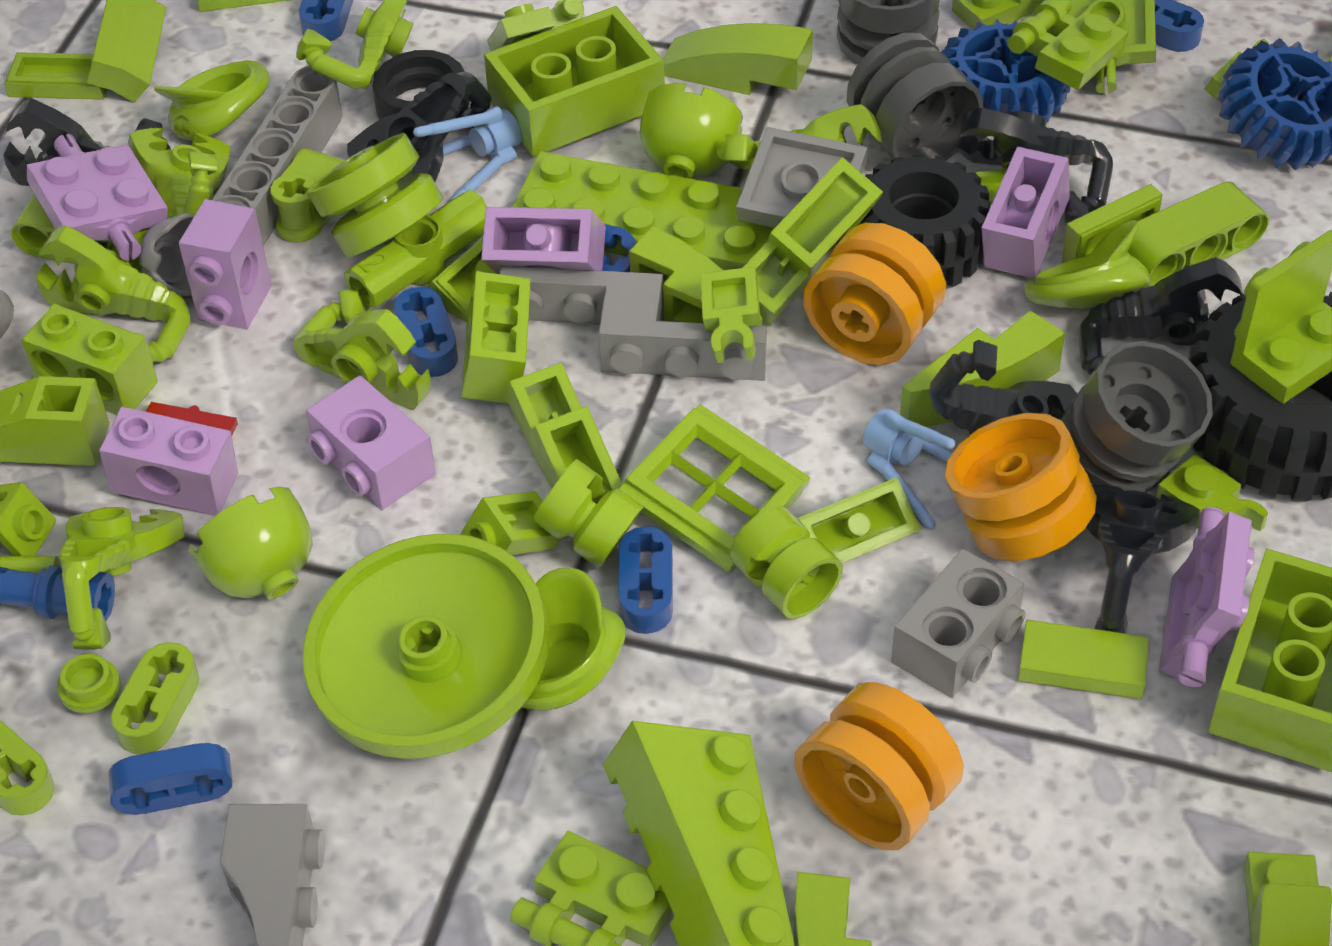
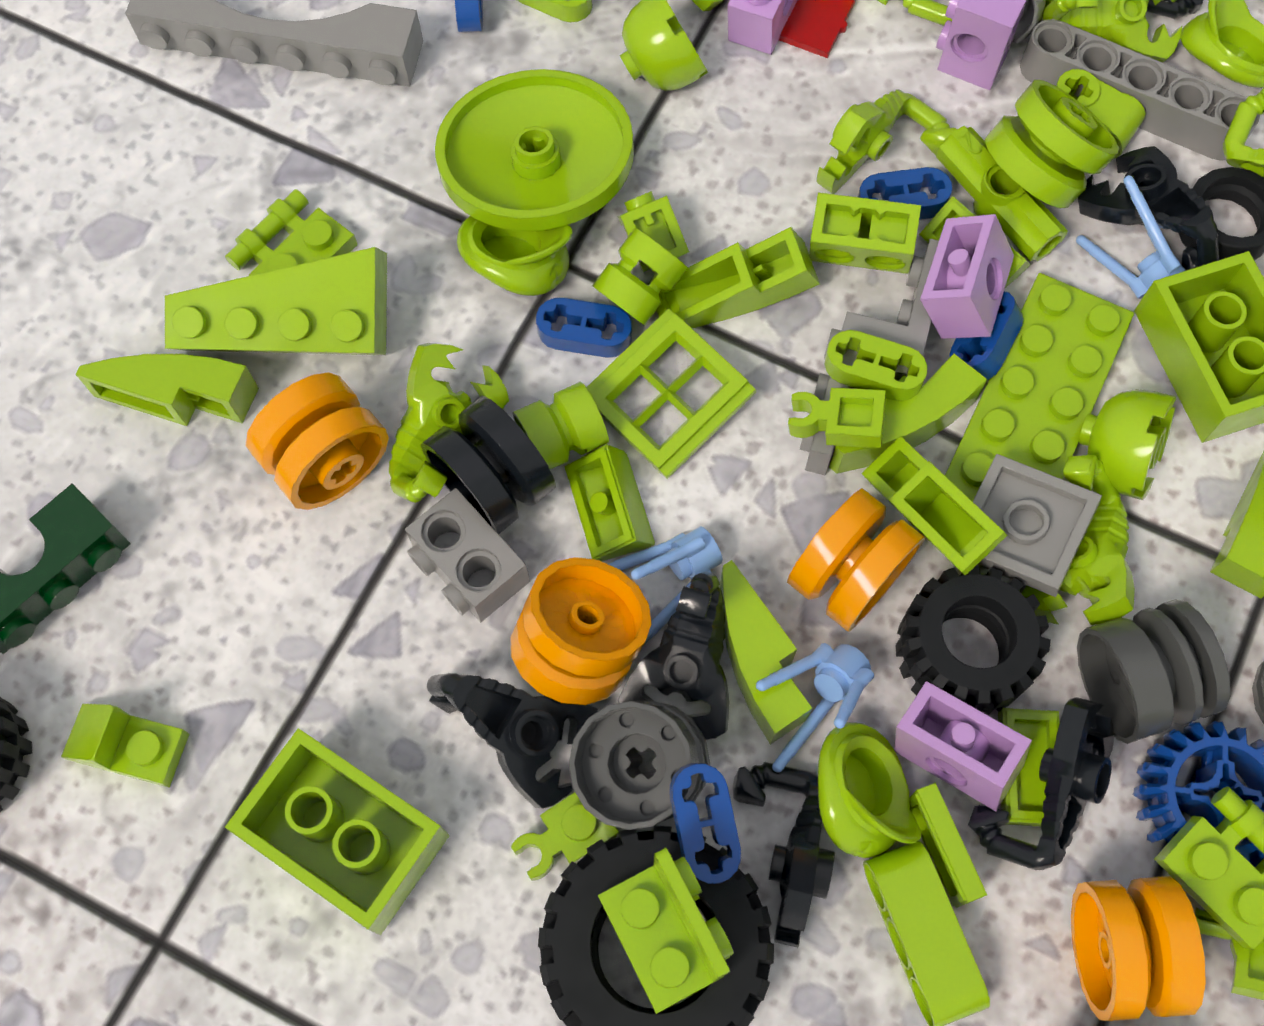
camera: 100 degrees right, 20 degrees up
(370, 442) = (795, 135): lavender brick -> none
(653, 295) = (875, 364): none -> lime beam
(796, 674) = (429, 409): none -> lime animal
(856, 596) = (490, 463): none -> black wheel
(991, 309) = (838, 676): none -> light blue plant
(1084, 659) = (414, 656): lime tile -> none
(1156, 95) = (1137, 948): none -> light orange wheel
(1188, 323) = (719, 819): none -> blue beam
(1207, 595) = (431, 770): lavender plate -> none

